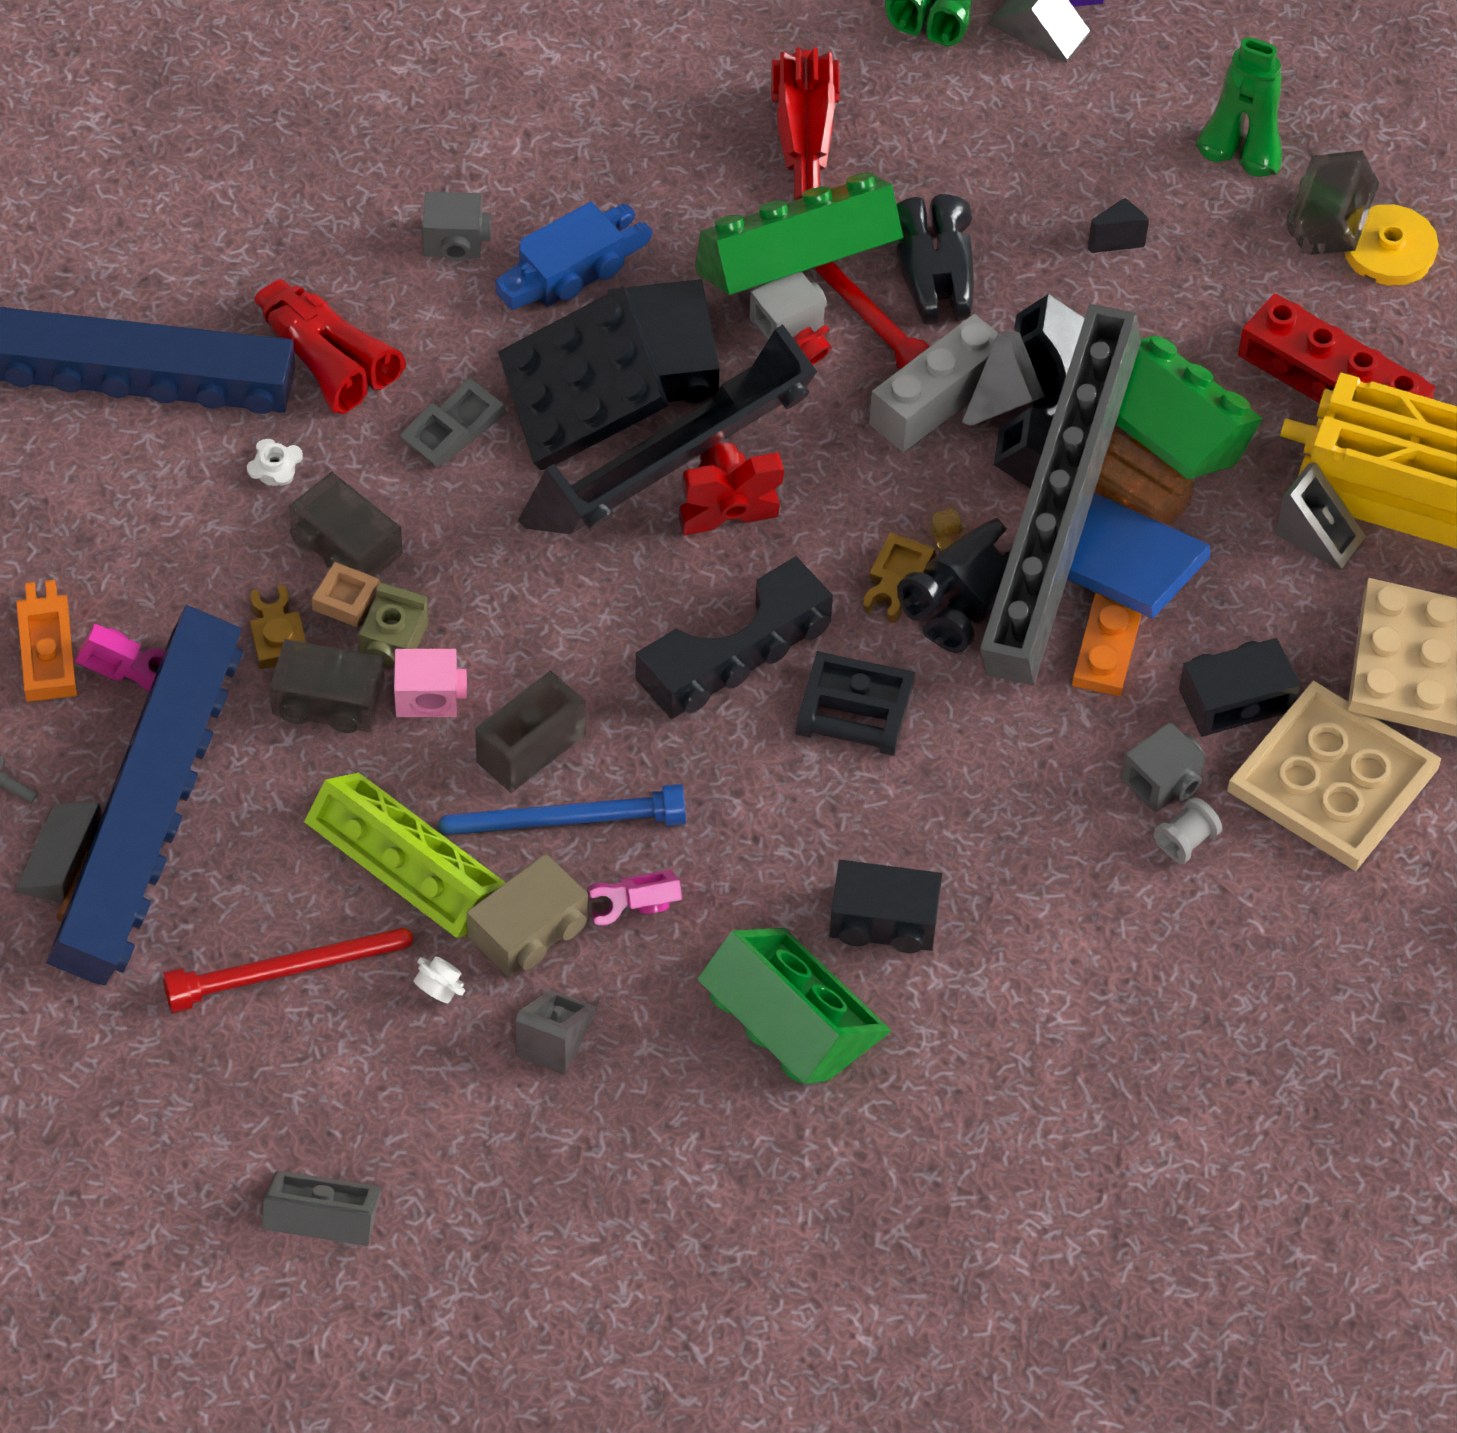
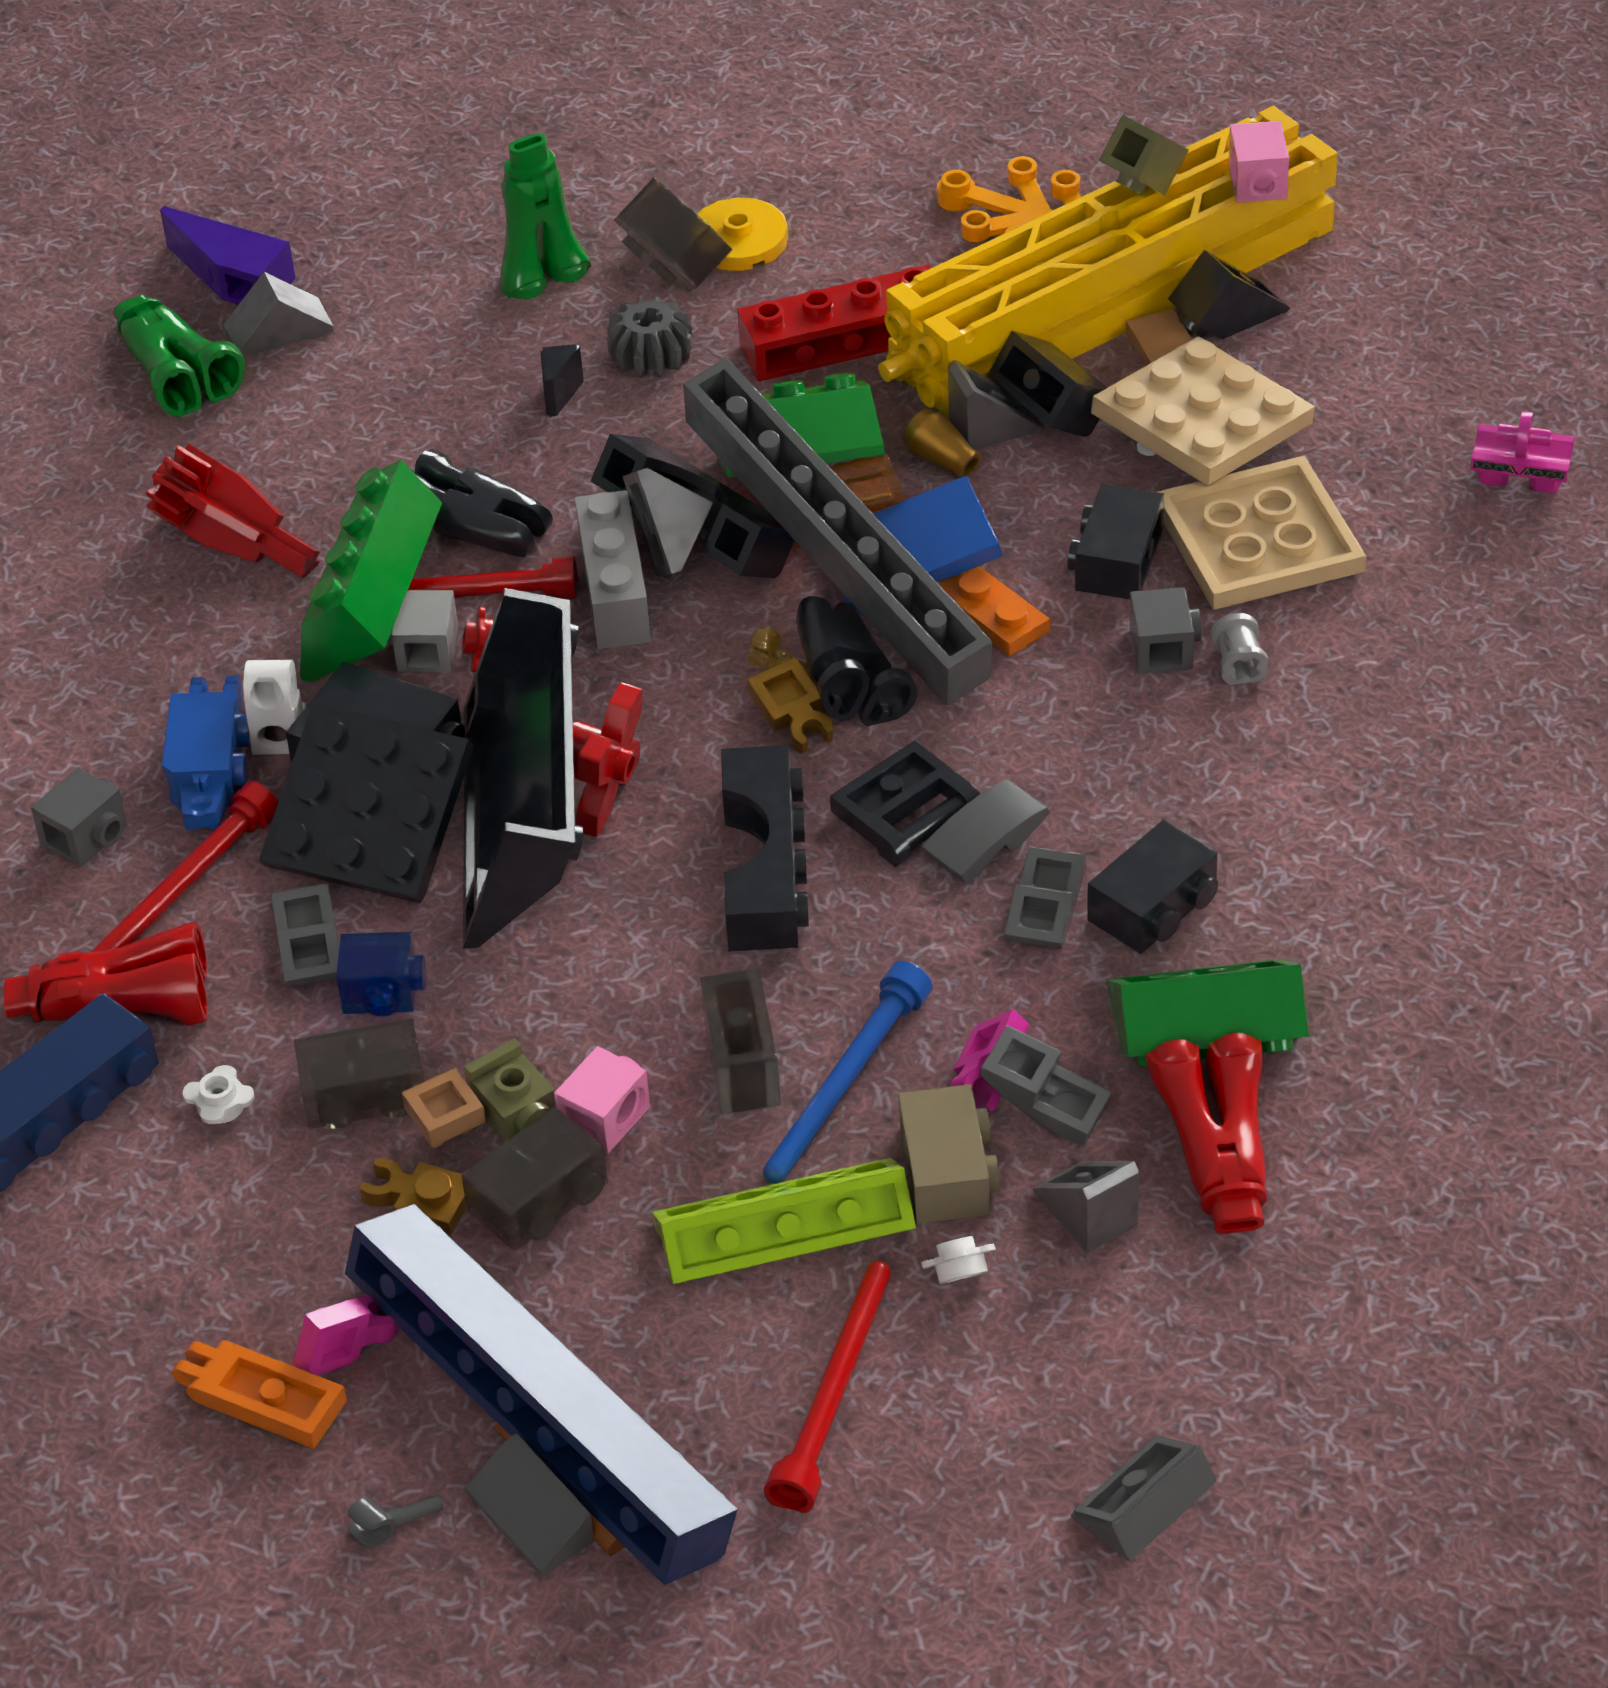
camera: 50 degrees left, 10 degrees down
(441, 484) = (379, 973): none -> clear blue brick
(533, 317) = (250, 808): none -> red piece
(629, 258) = (270, 700): none -> white leg
(634, 942) = (1032, 1081): none -> dark grey slope
(665, 1086) = (1225, 1159): none -> red piece
(815, 849) = (1045, 897): none -> dark grey slope
(875, 767) = (984, 826): none -> dark grey slope
(1213, 257) = (649, 336): none -> dark grey gear
(1256, 509) = (939, 442): none -> pearl gold cone
(1371, 540) = (1047, 383): none -> black brick

